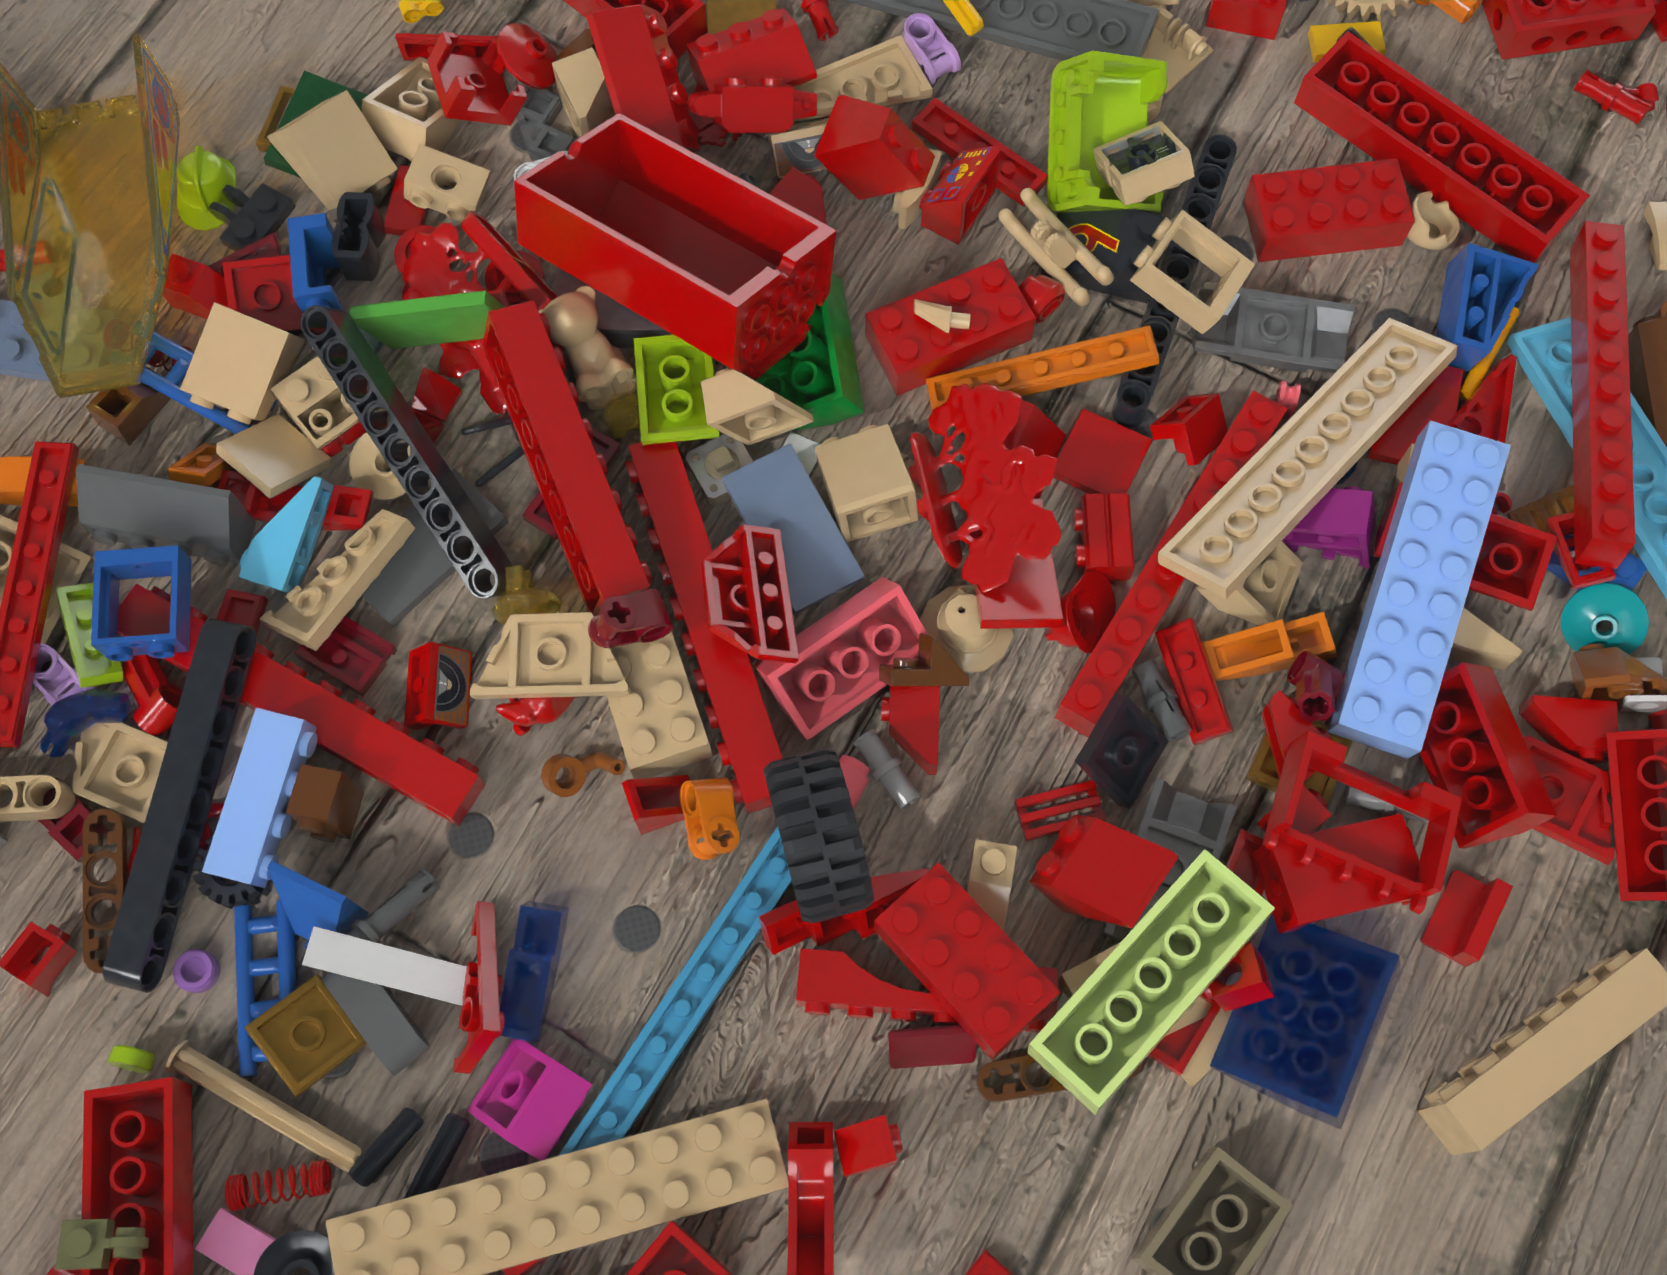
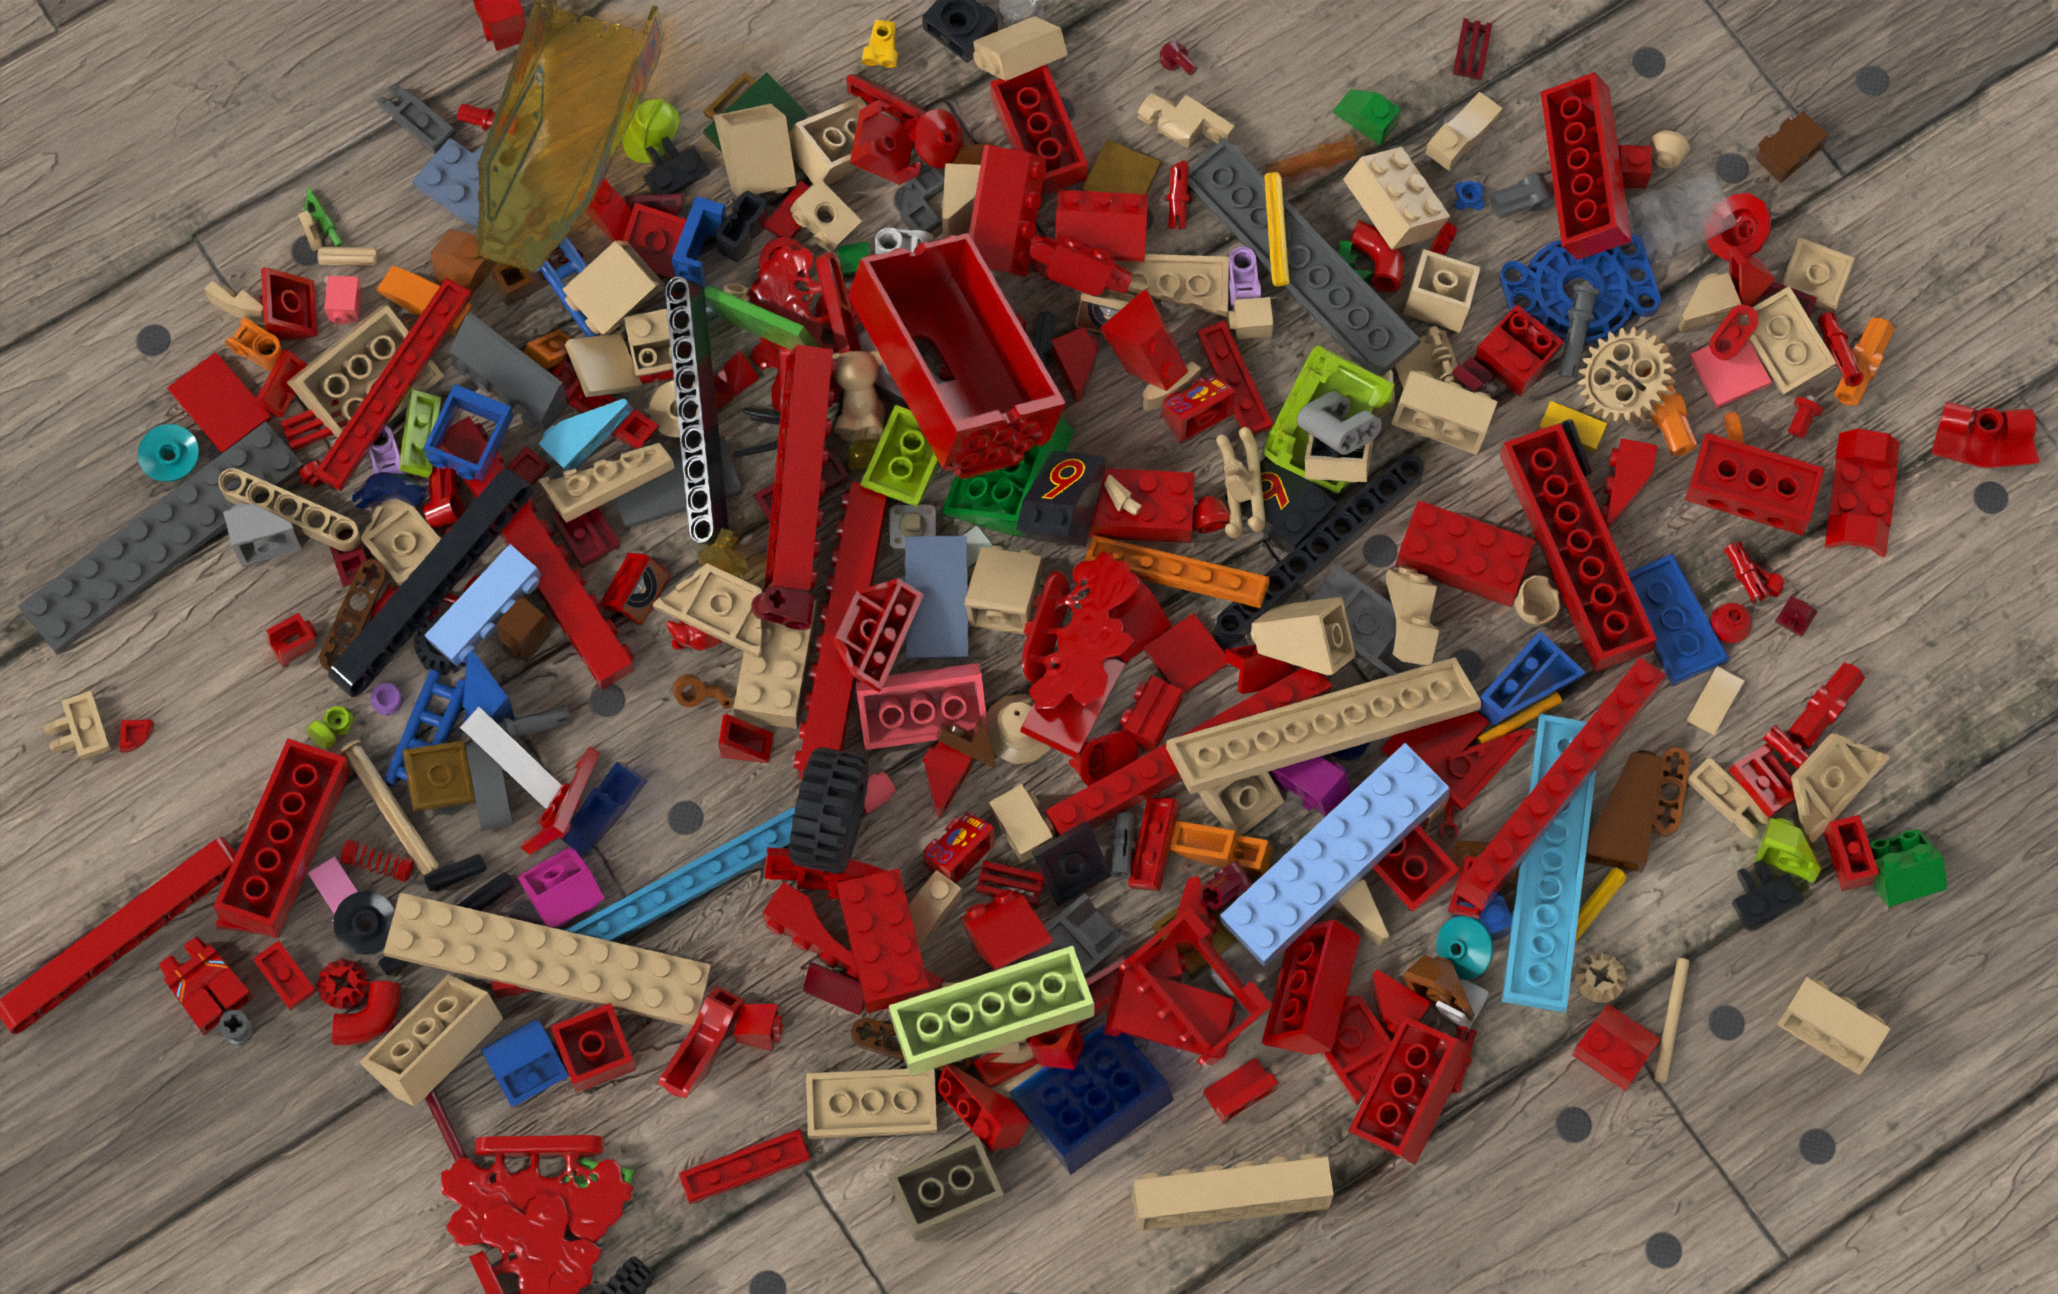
camera: 25 degrees right, 0 degrees up
(52, 419) = (459, 261): none -> dark orange slope
(89, 1244) = (254, 830): olive plate -> none
(135, 1029) = (341, 713): none -> lime plate
(502, 216) = (850, 257): none -> green tile
(709, 814) = (770, 765): orange piece -> none
(748, 409) = (949, 497): tan slope -> none
(879, 349) = (1063, 499): none -> black slope
(887, 769) = (908, 796): light grey pin -> none
(962, 82) = (1251, 318): none -> tan brick
(982, 798) = (960, 848): none -> red slope
(1037, 732) = (1021, 821): none -> tan brick
(1052, 1171) = (870, 1103): none -> tan plate
(1111, 136) = (1323, 421): none -> light grey connector
(1194, 1104) = (982, 1109): none -> red slope
(1209, 250) = (1344, 540): tan window -> none
(1223, 77) = (1444, 412): none -> tan brick
(1225, 29) = (1473, 375): none -> dark red slope
(1226, 366) = (1306, 635): none -> tan slope
(1288, 397) = (1345, 678): coral bush -> none
(1317, 281) = (1412, 603): none -> tan arch
(1436, 53) = (1631, 474): none -> red slope
(1612, 191) = (1683, 633): none -> blue tile
(1631, 151) = (1733, 628): none -> red cone

